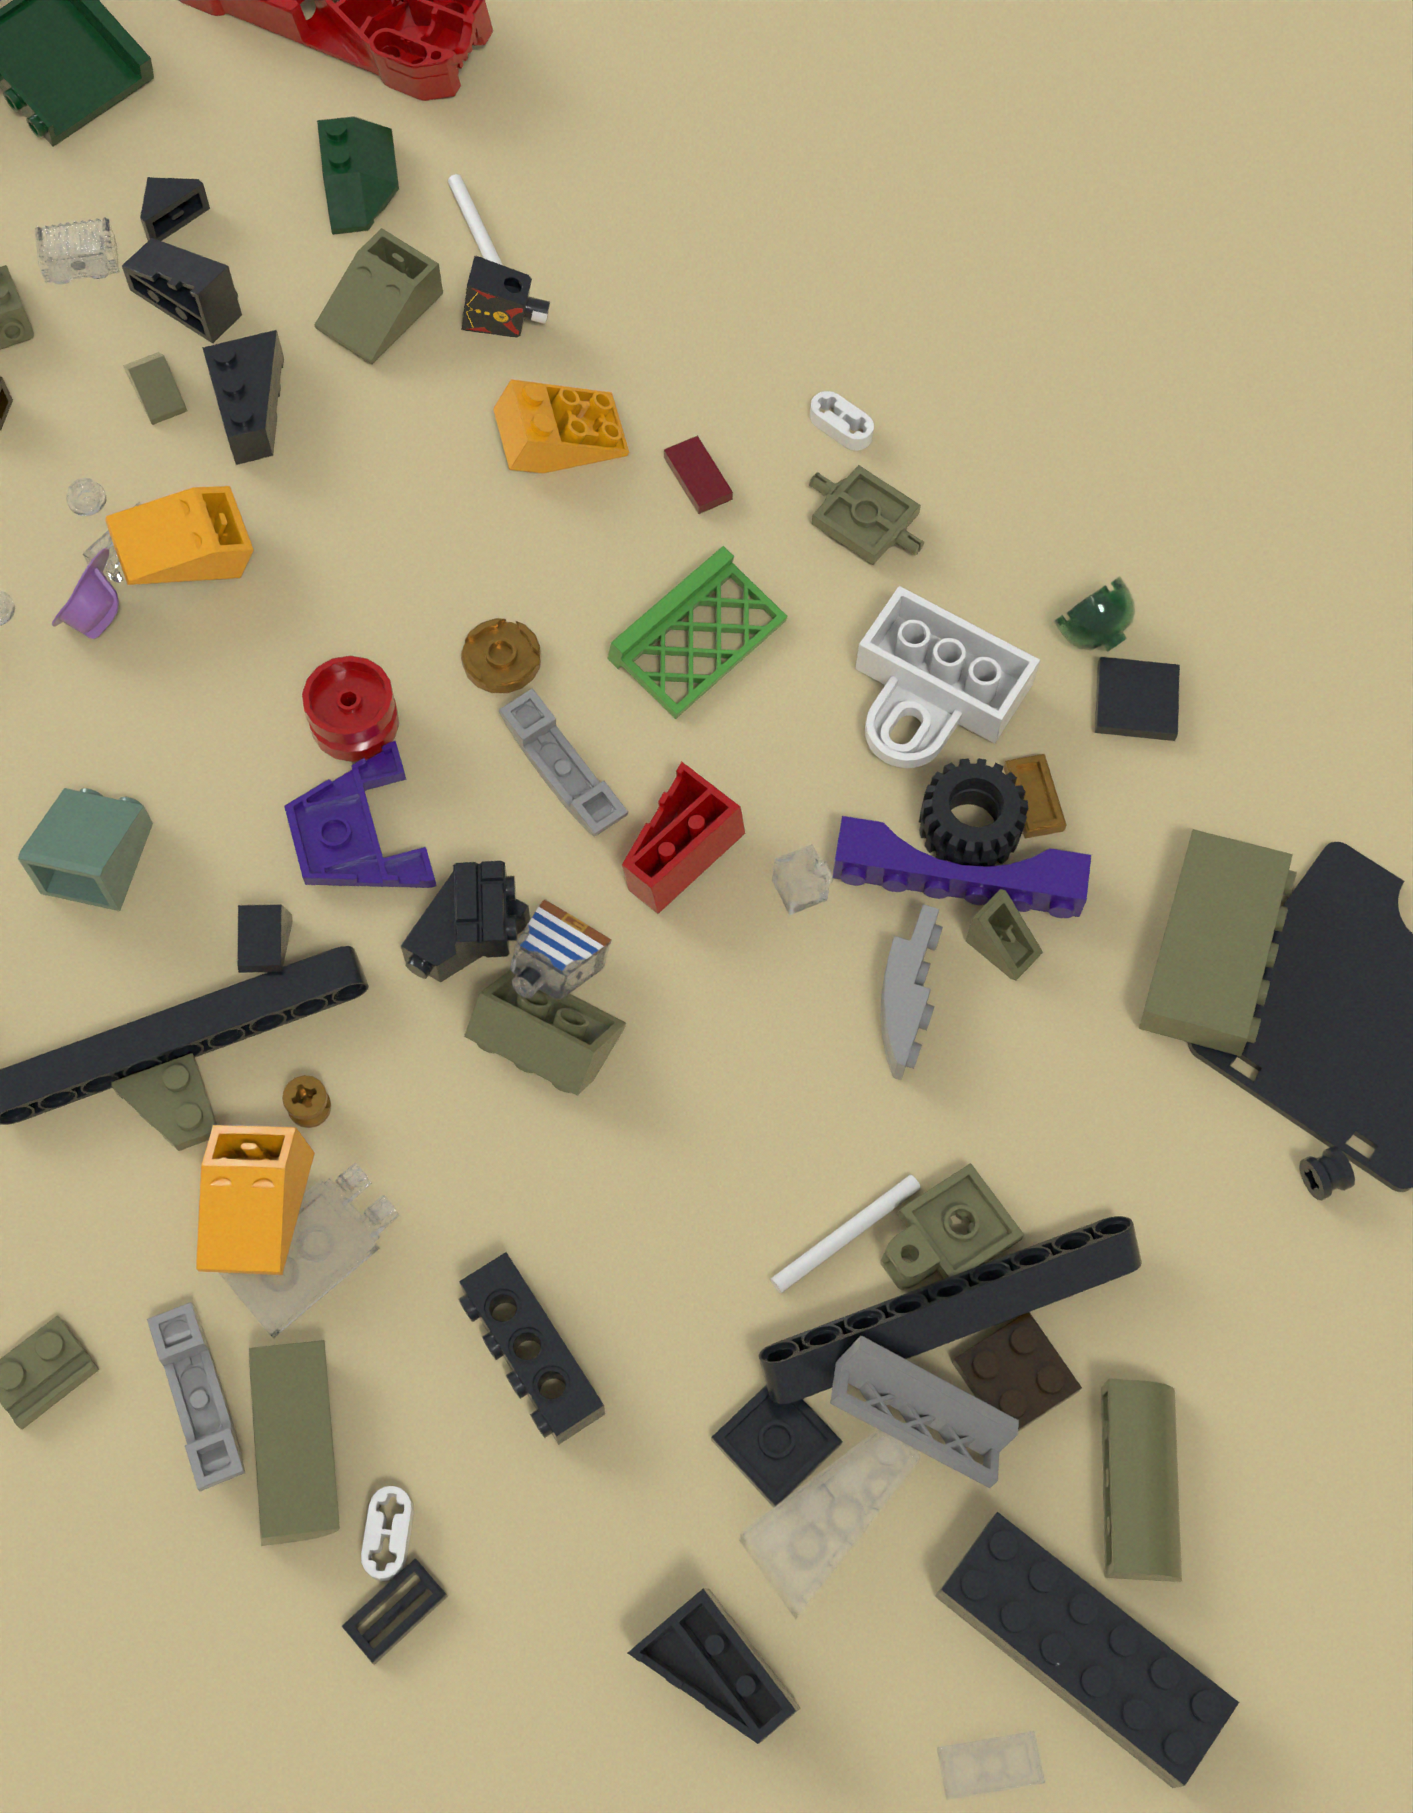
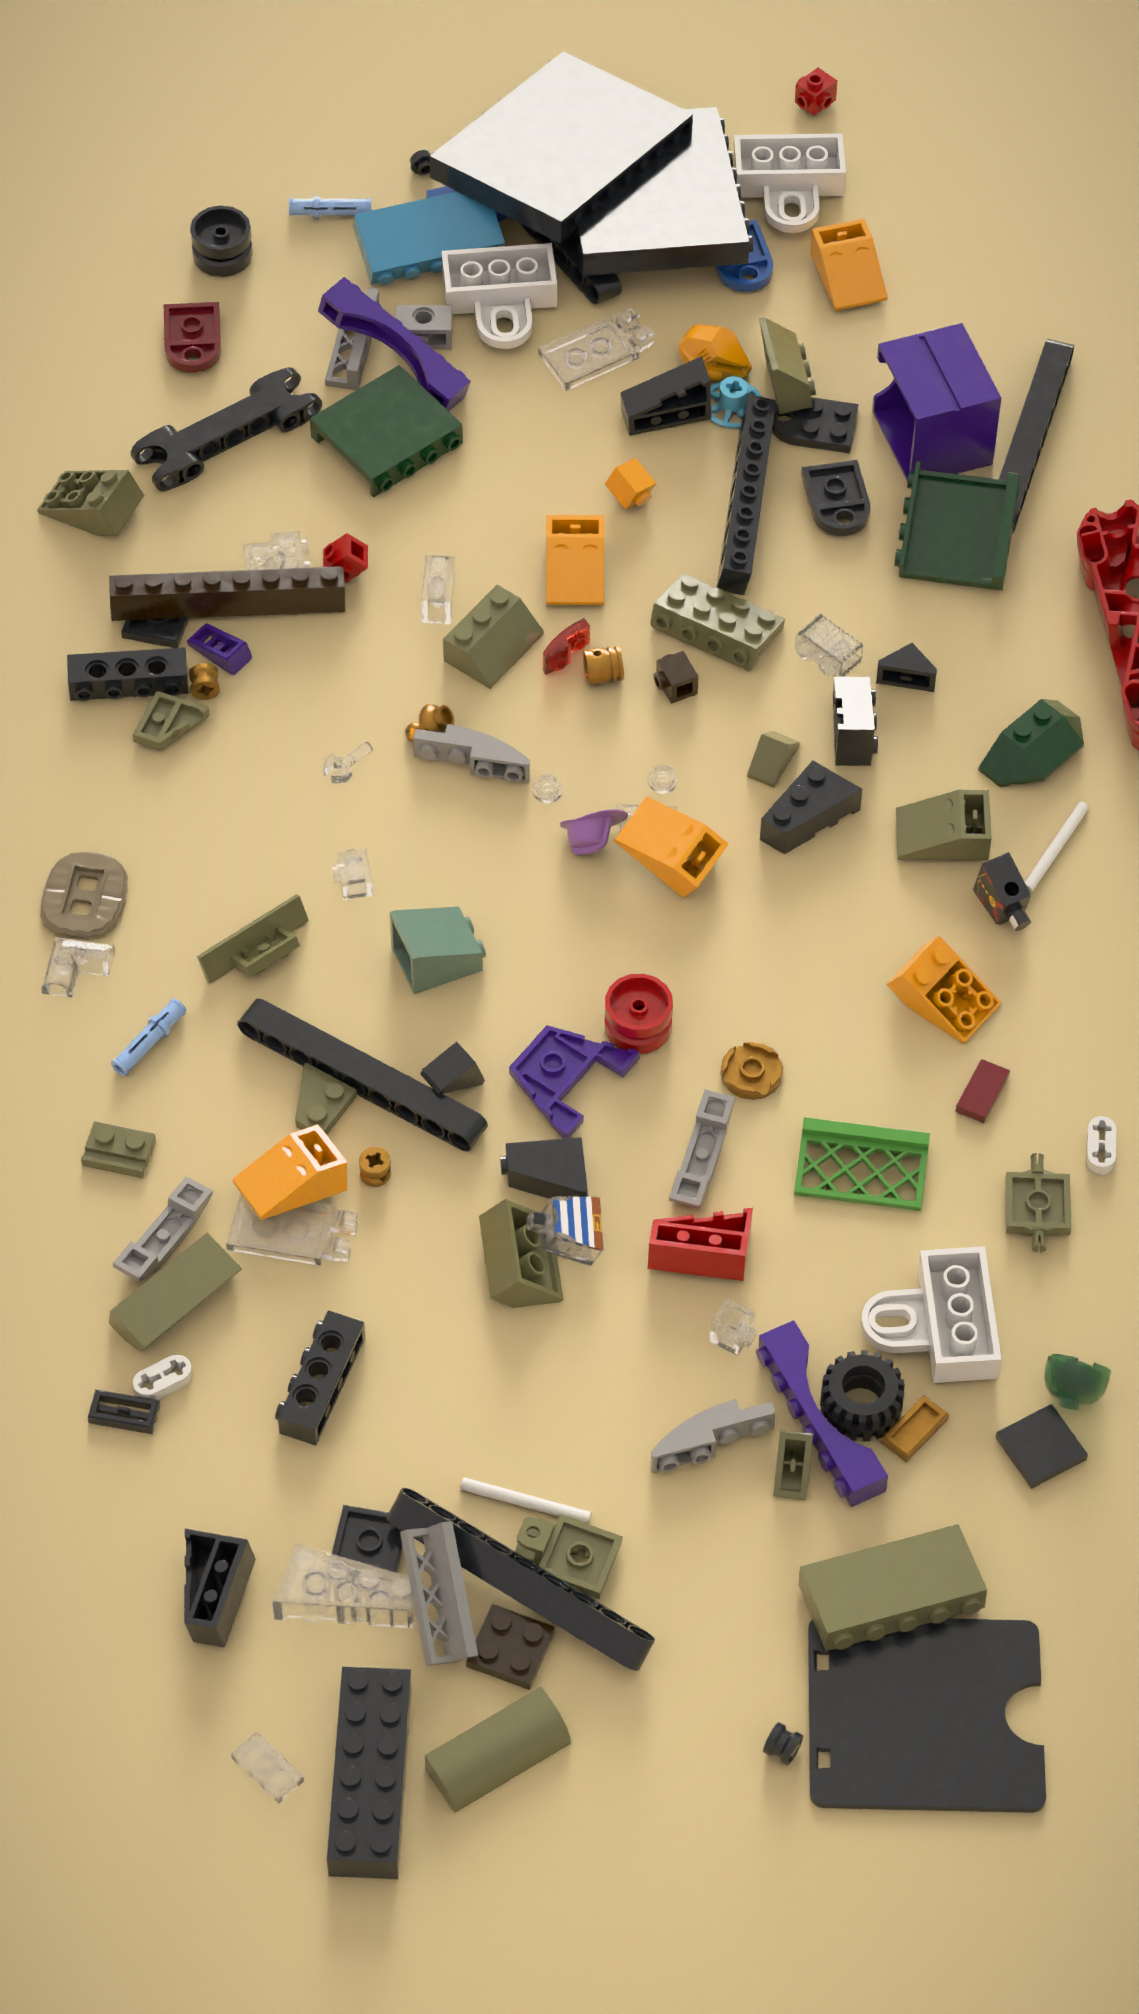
camera: 55 degrees right, 10 degrees down
(482, 909) = (559, 1165): black brick -> none

